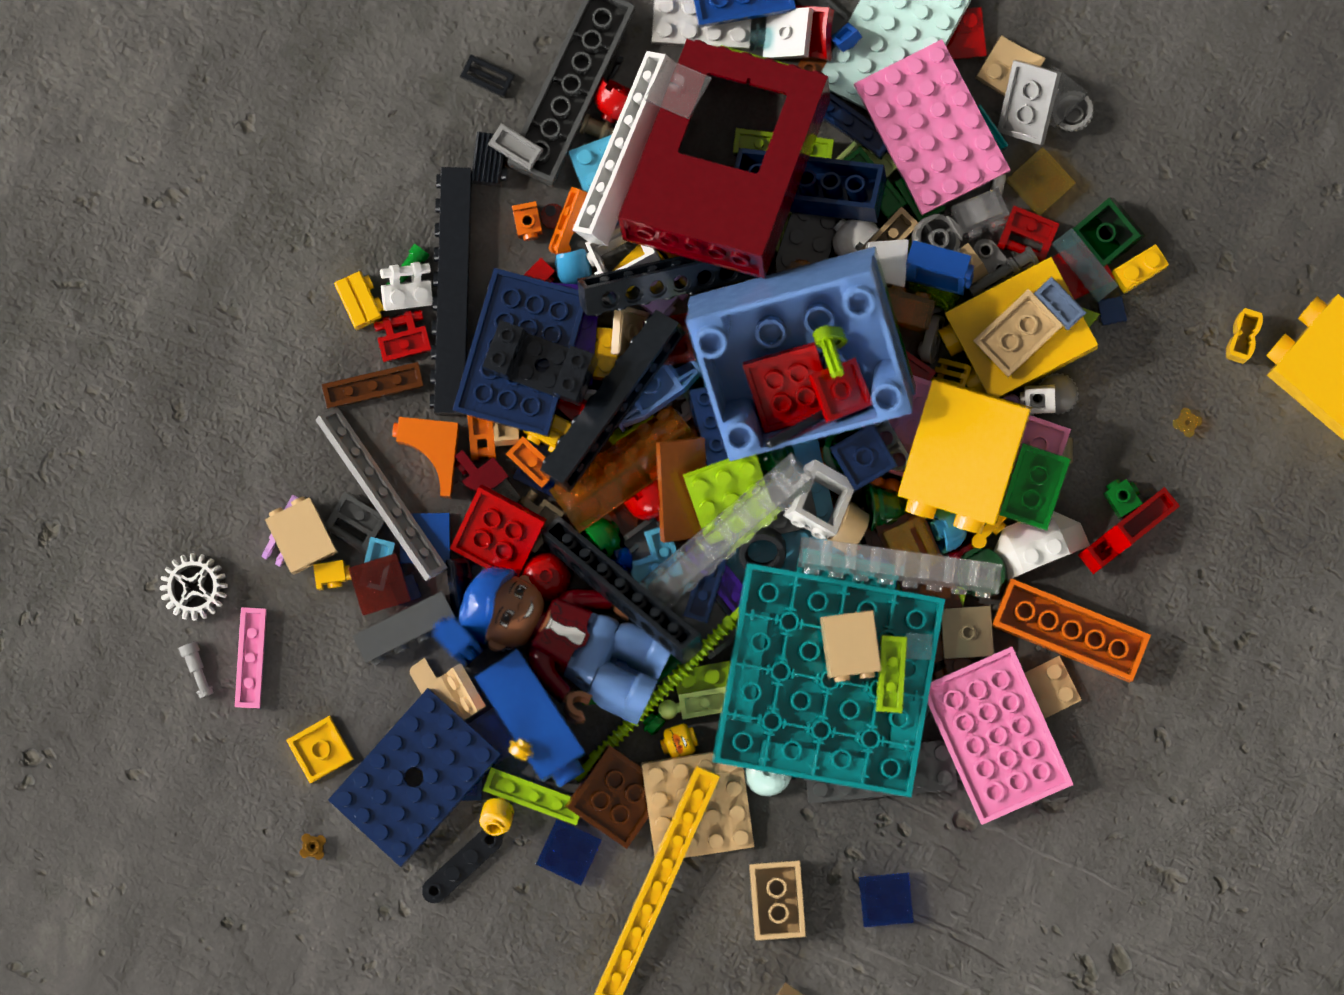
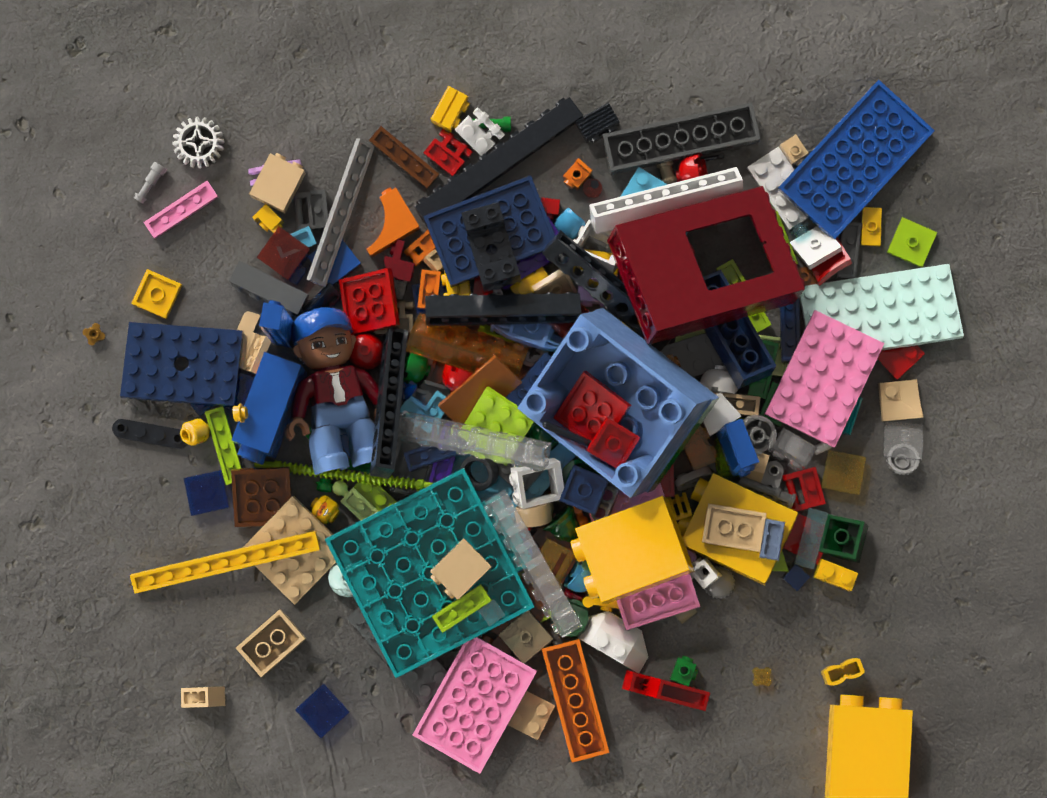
camera: 50 degrees right, 0 degrees up
(506, 85) = (652, 99): black tile -> none
(515, 147) = (615, 132): light grey tile -> none
(564, 228) = (583, 202): orange plate -> none
(677, 88) = (726, 203): clear piece -> none
(829, 340) = (638, 413): lime piece -> none
(846, 37) = (840, 284): blue plate -> none
(1029, 102) = (887, 427): light grey plate -> none
(1035, 487) = (646, 610): green plate -> none

